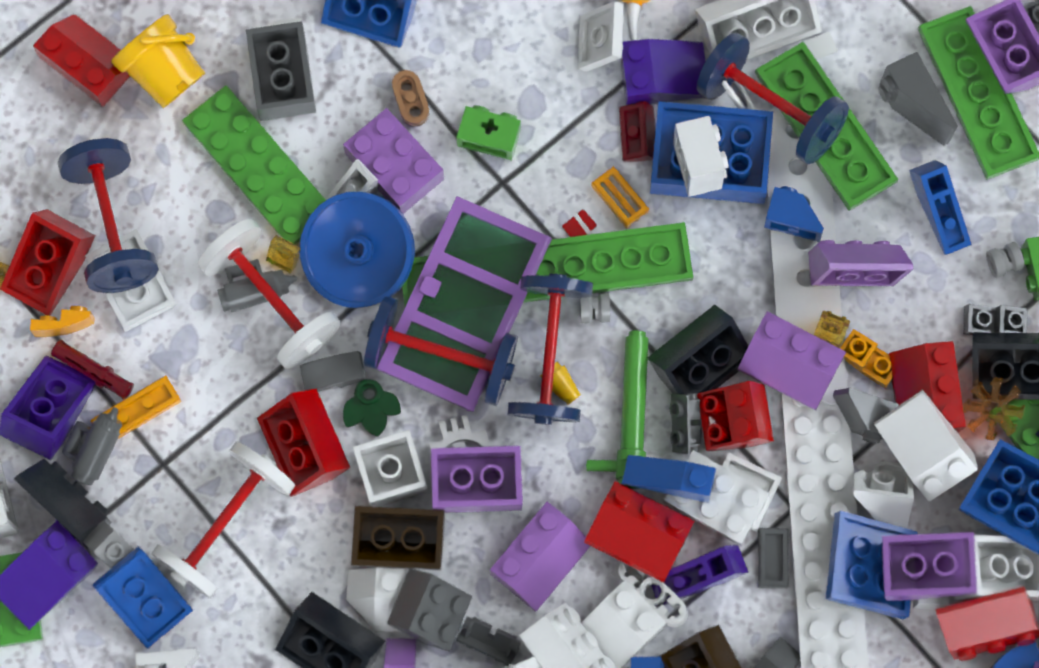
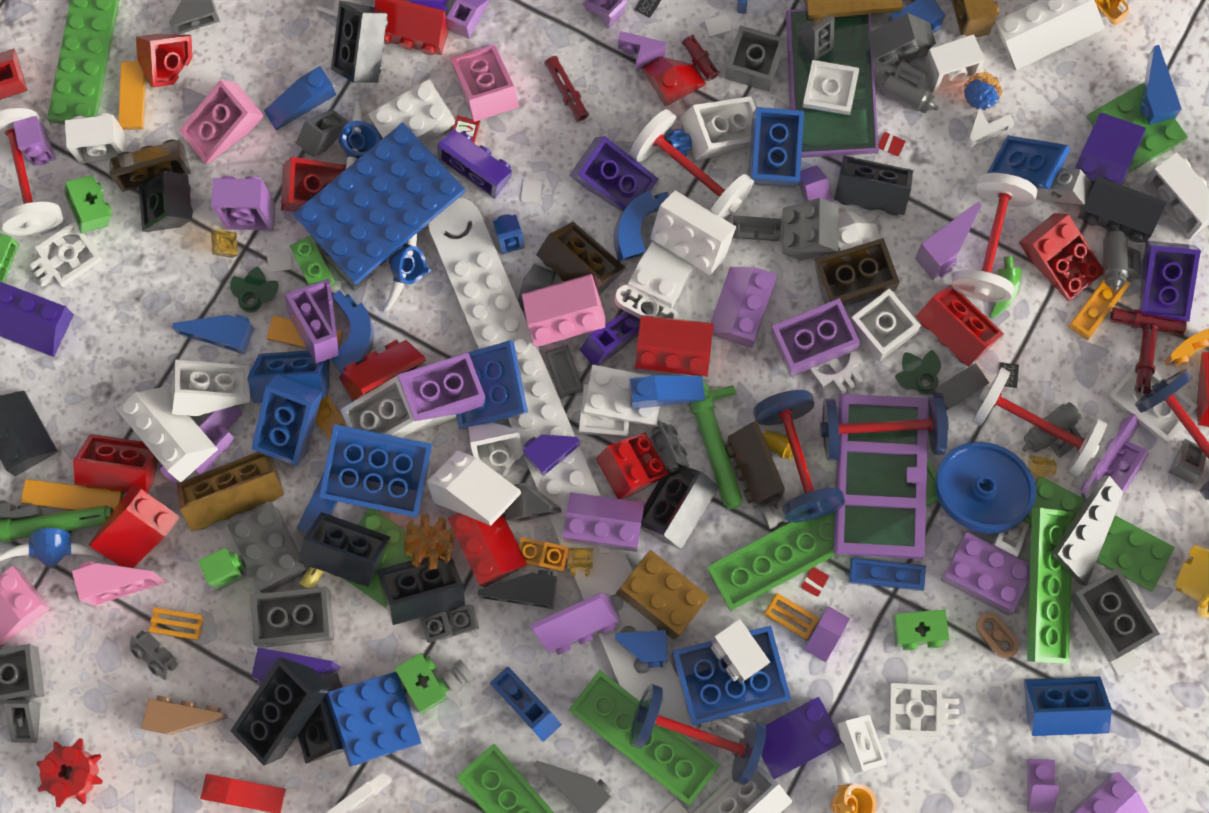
camera: 165 degrees right, 0 degrees up
(123, 313) = (1145, 366): none -> dark red pin
(125, 199) = (1188, 462): none -> dark grey slope
(152, 480) = (1062, 255): none -> red slope
(198, 225) = (1120, 460): none -> medium lavender bracket
(224, 474) = (1014, 276): none -> bright green bar
(271, 371) = (1013, 377): none -> black sticker
(272, 158) = (1087, 532): none -> wing
(279, 533) = (941, 249): none -> medium lavender slope
(335, 121) = (1048, 589): none -> bright green plate
(499, 201) = (887, 574): none -> blue tile
(503, 46) = (941, 710): none -> white piece
(588, 165) = (827, 634): none -> medium lavender slope
(600, 364) = (755, 465): none -> dark brown slope
(637, 131) = (799, 678): dark red slope -> none
(753, 617) = (563, 310): none -> bright pink slope
(754, 261) = (662, 594): none -> pearl gold brick
(826, 459) = (549, 451): none -> dark purple slope
(897, 323) = (530, 590): none -> black slope

